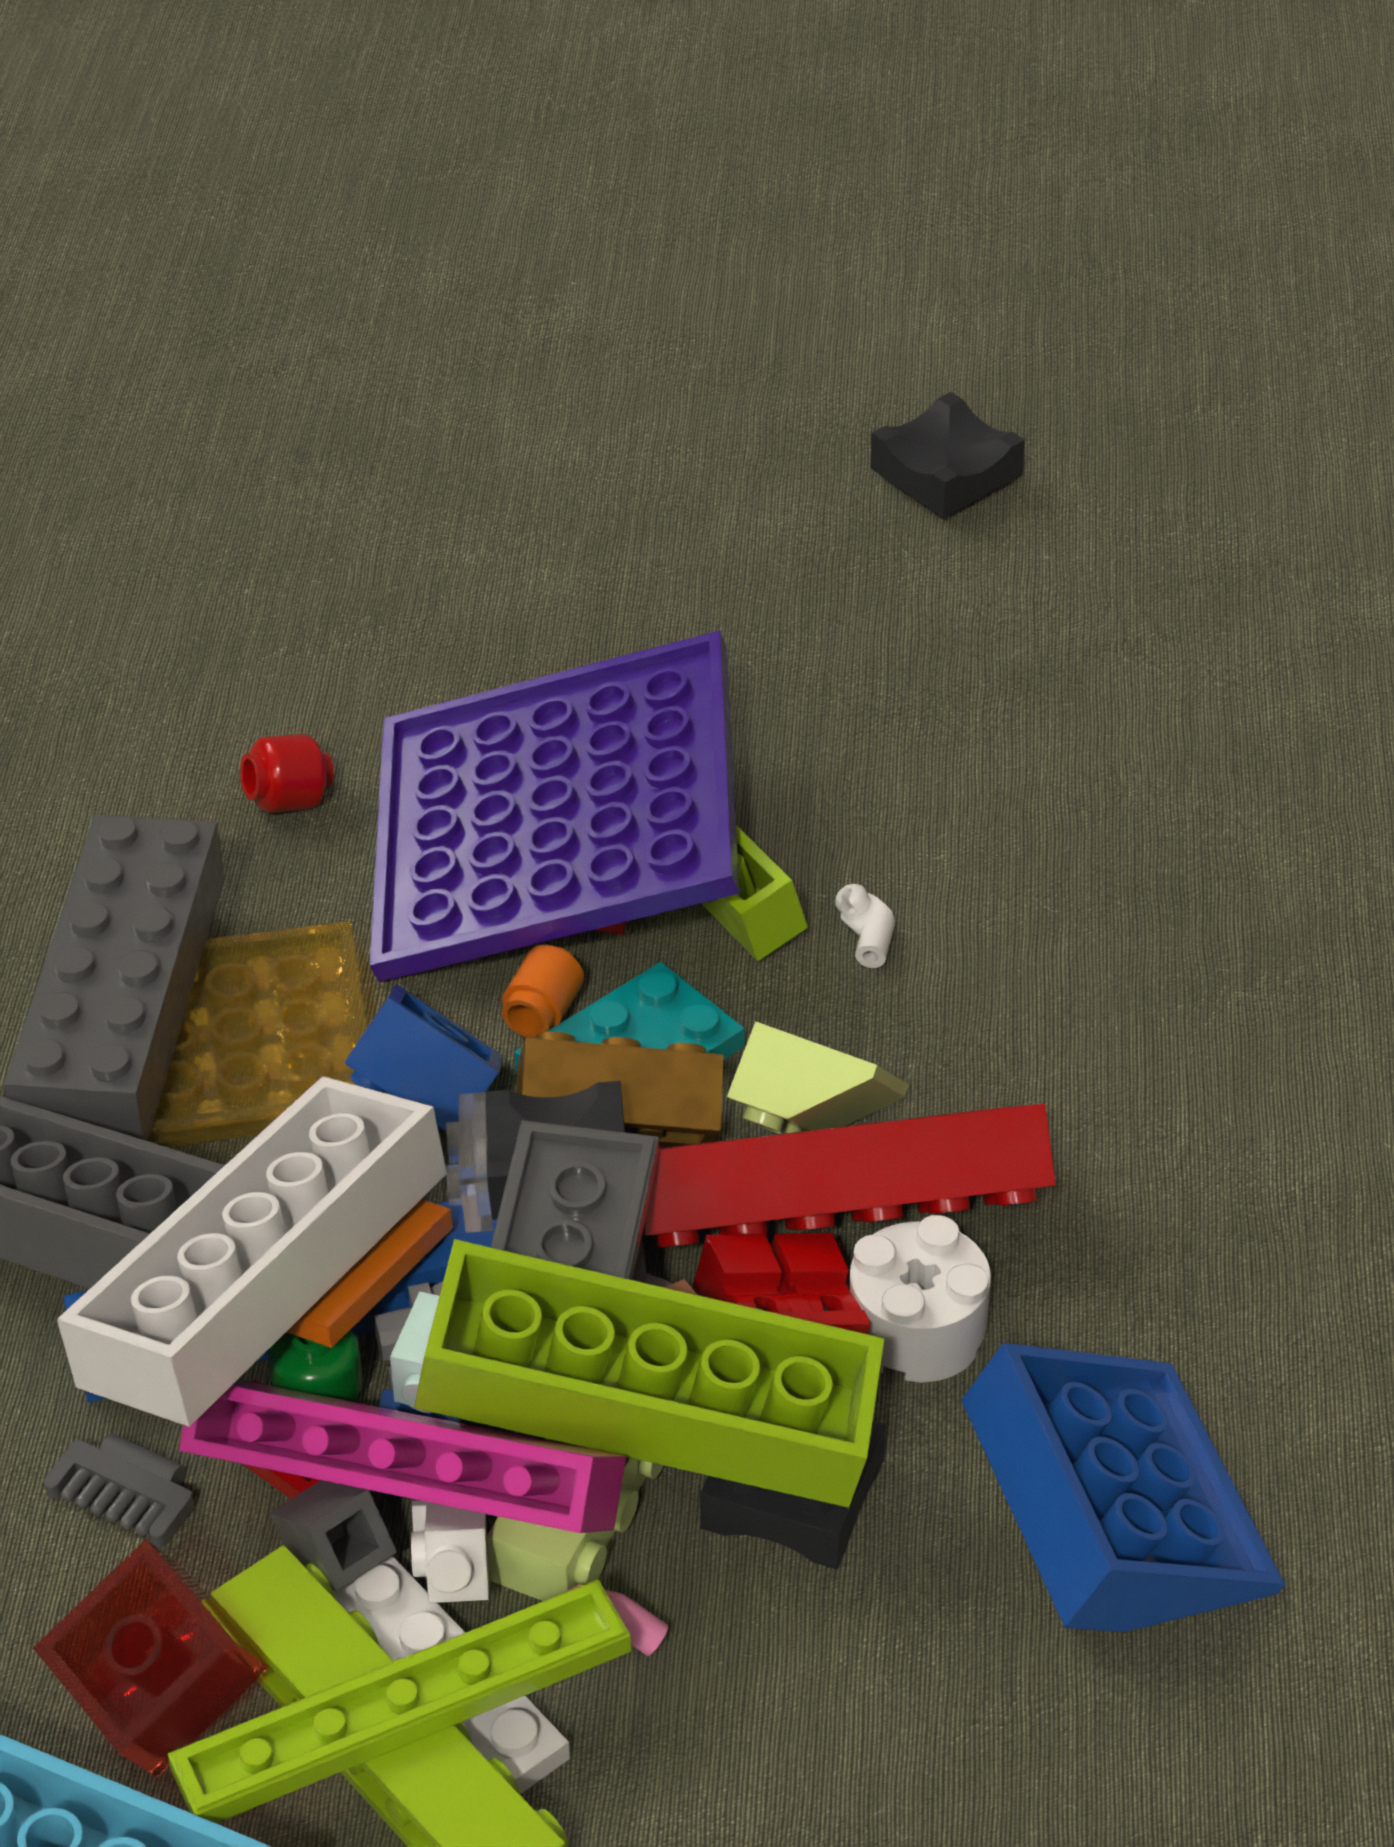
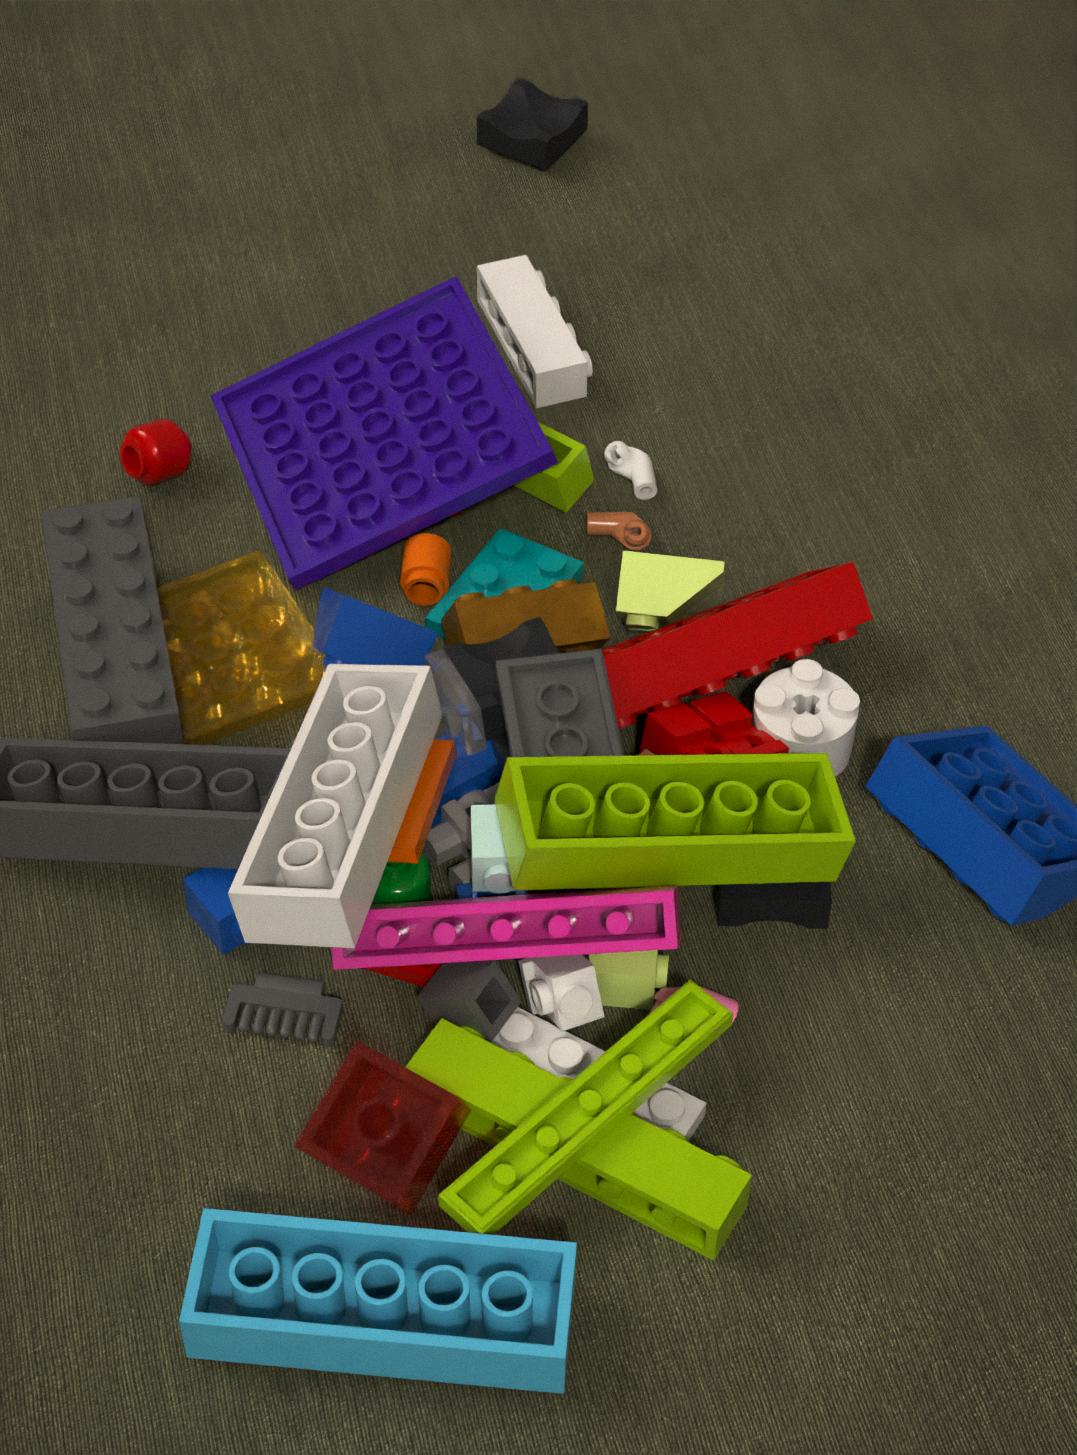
camera: 20 degrees left, 5 degrees up
(817, 994) = (622, 526): none -> nougat arm
(820, 721) = (533, 331): none -> white brick

